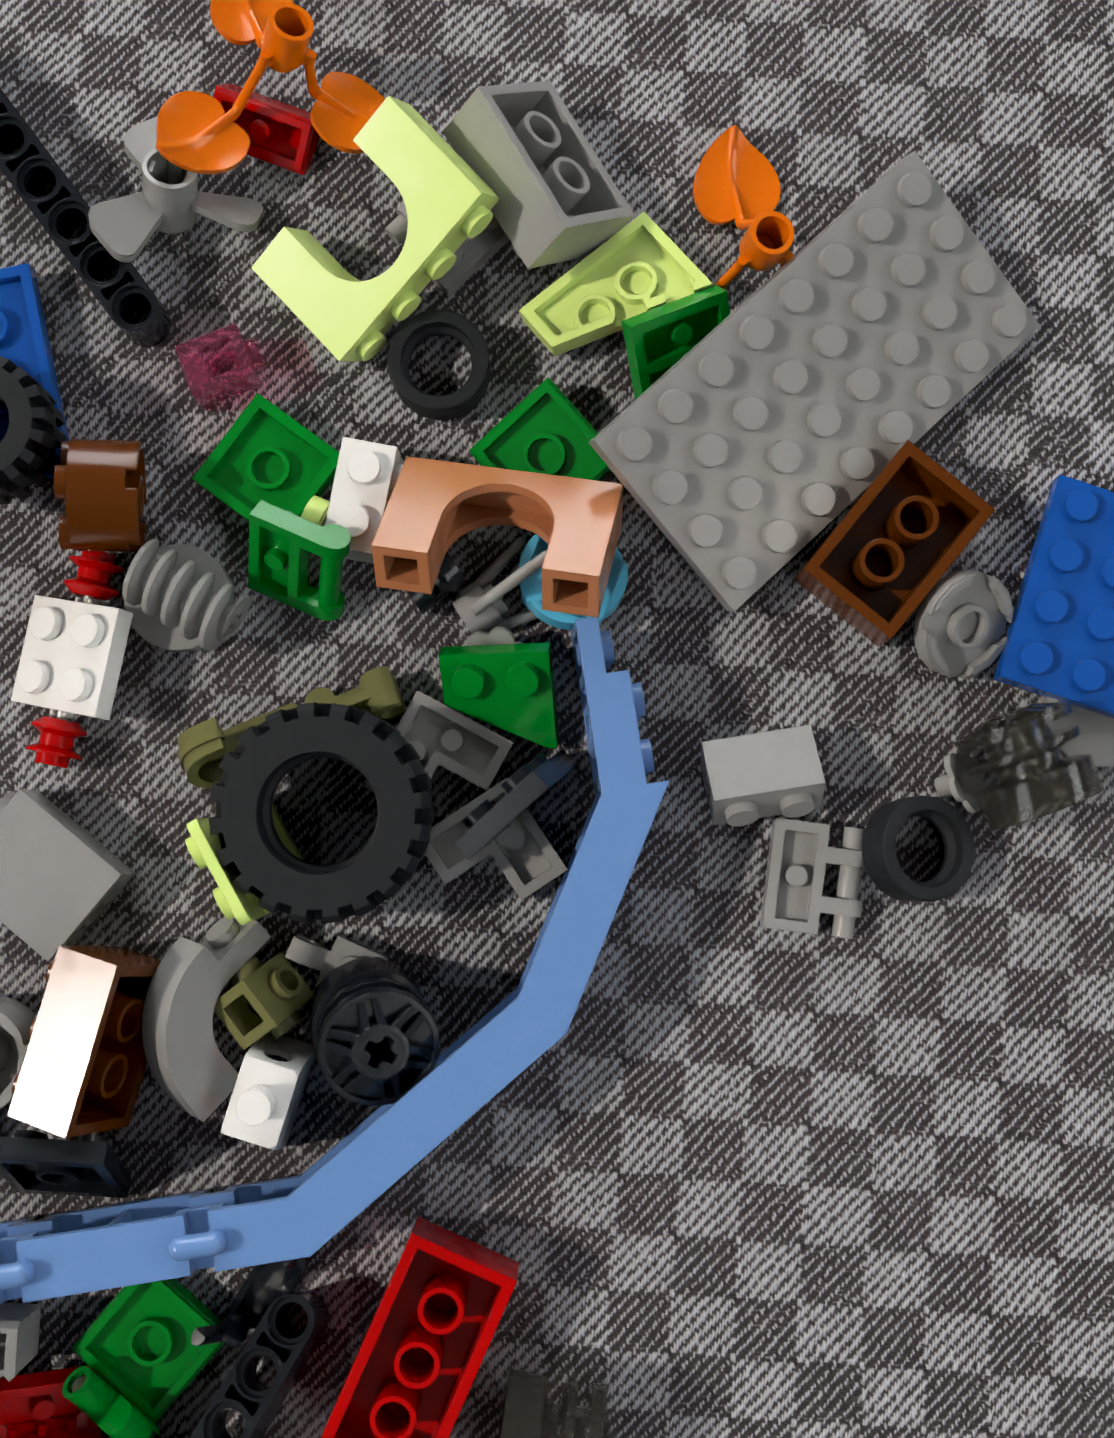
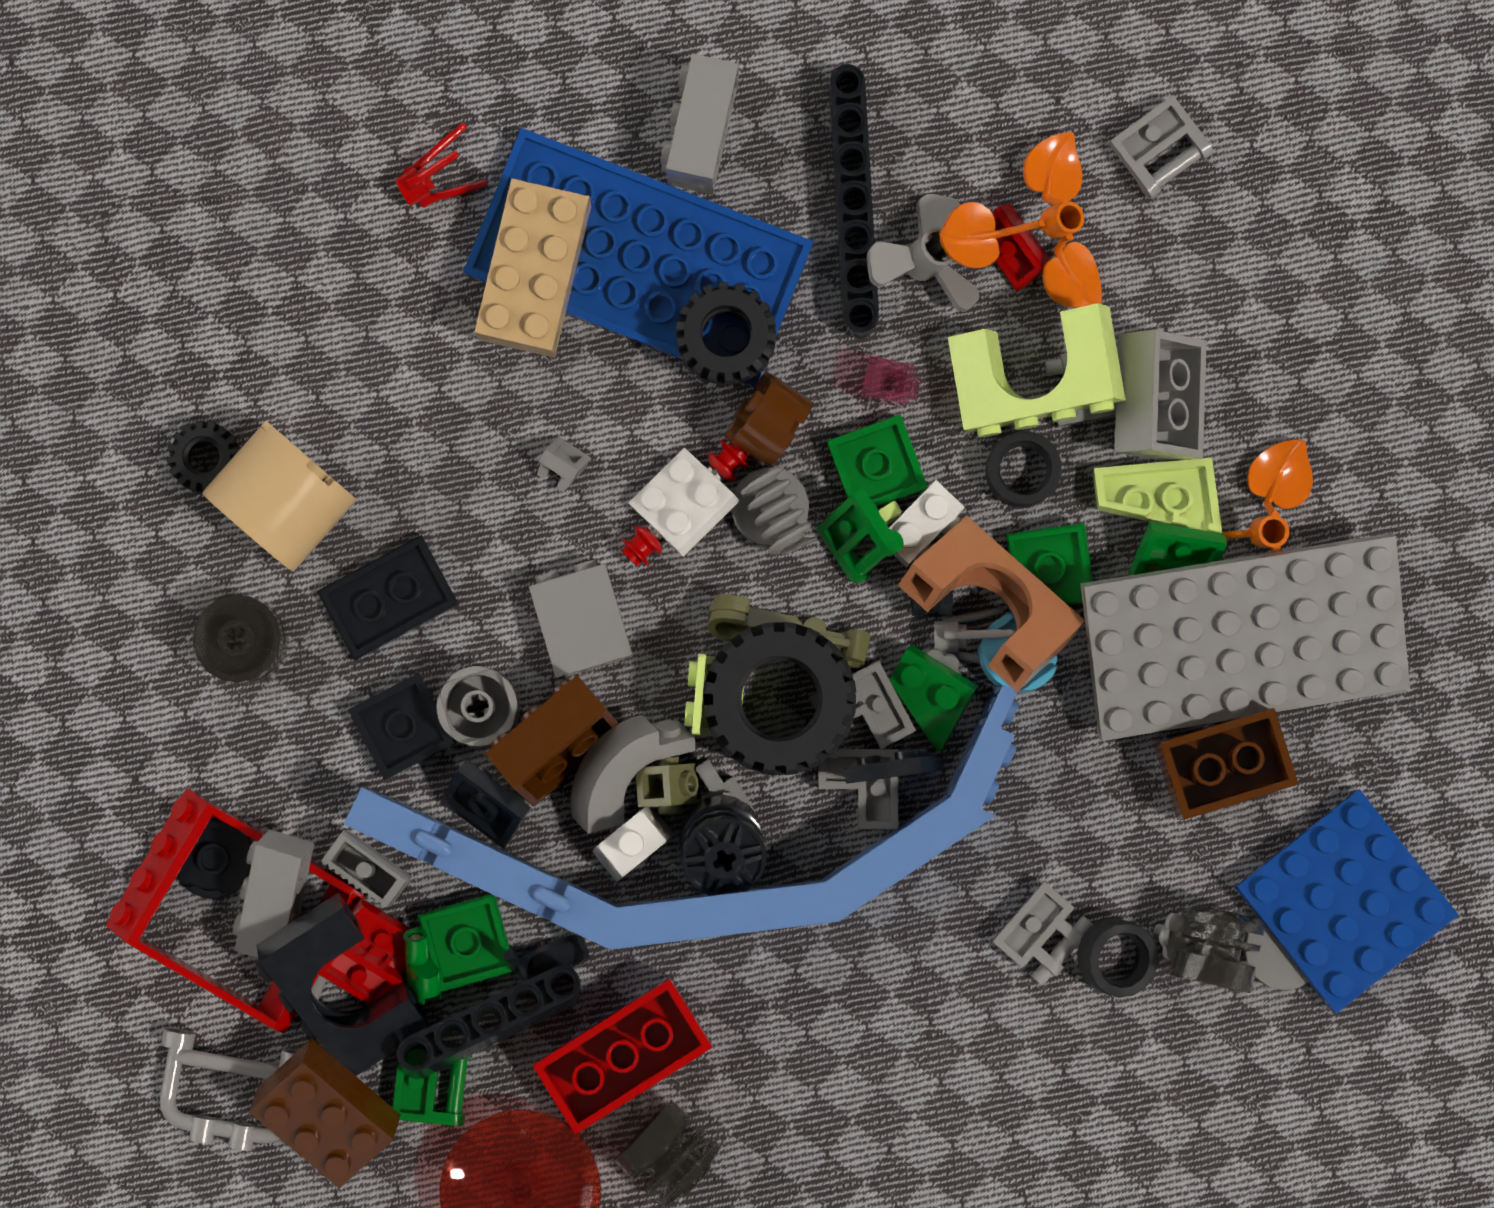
camera: 30 degrees right, 0 degrees up
(762, 775) = (1052, 850): light grey brick -> none
(963, 623) = (1236, 840): light grey tile -> none

